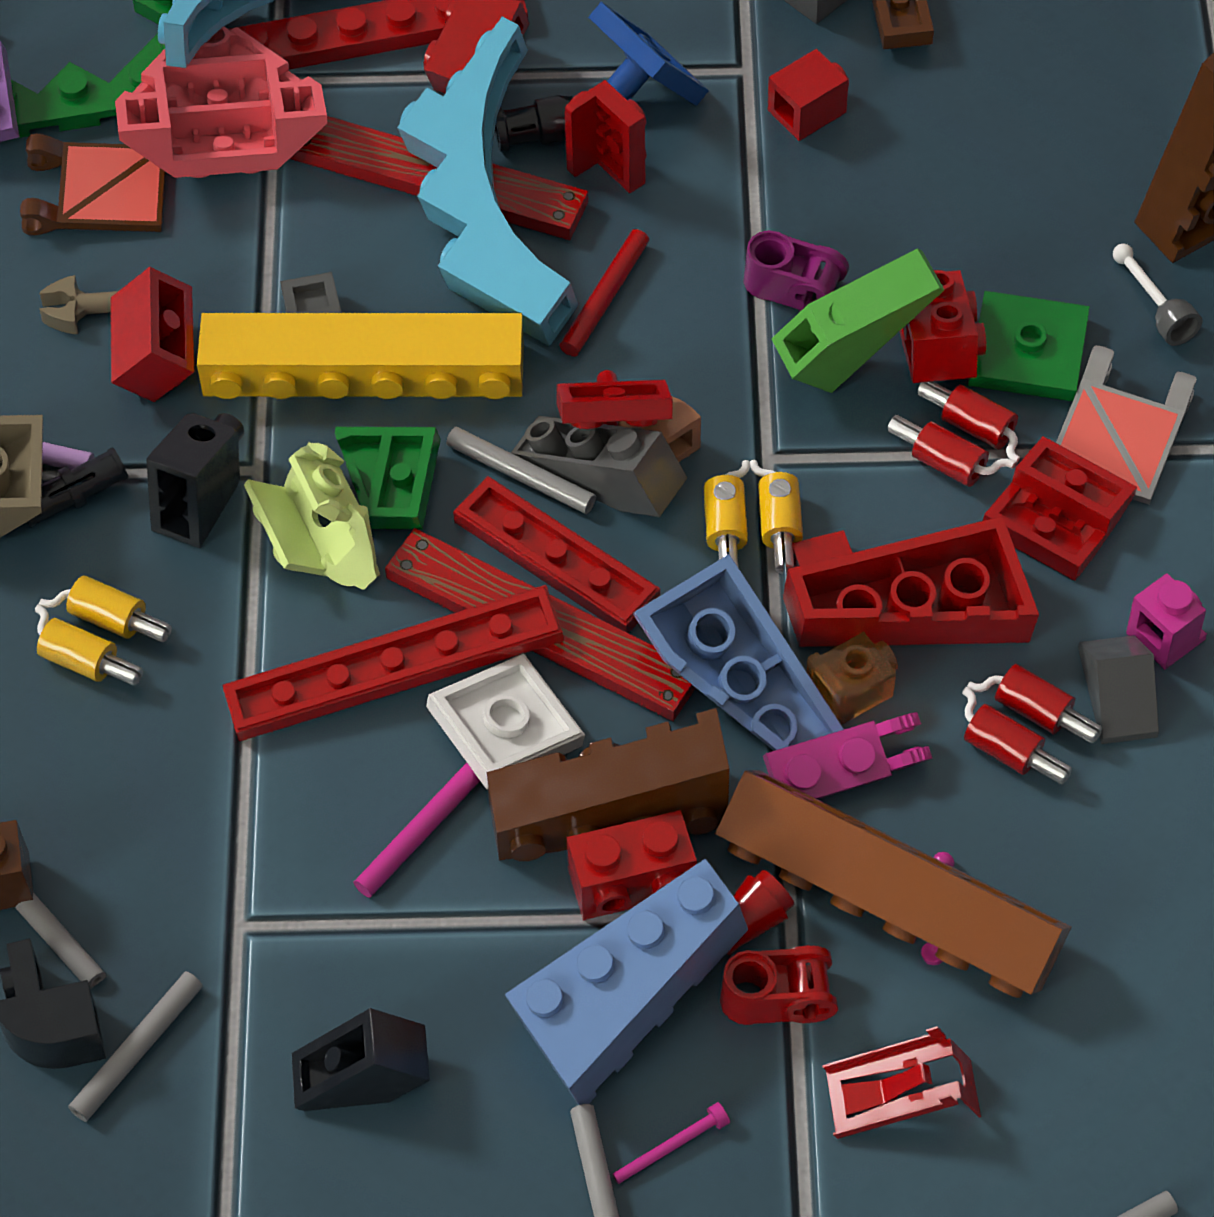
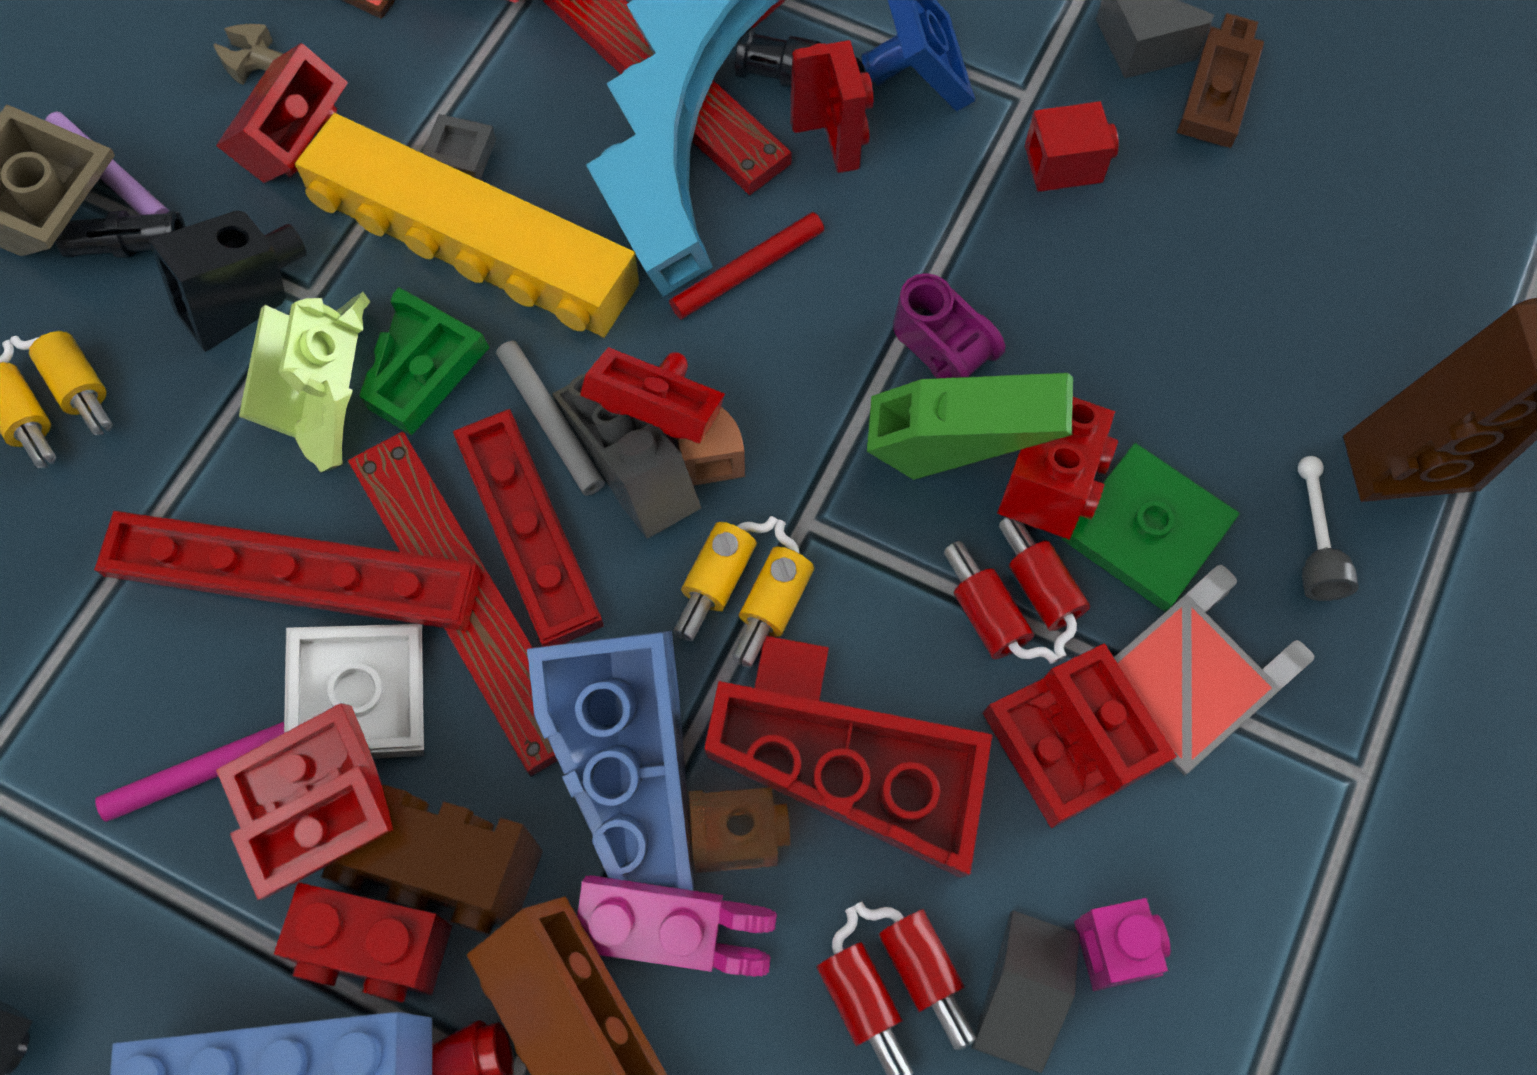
camera: 25 degrees right, 10 degrees up
(540, 777) = (305, 800): none -> red slope

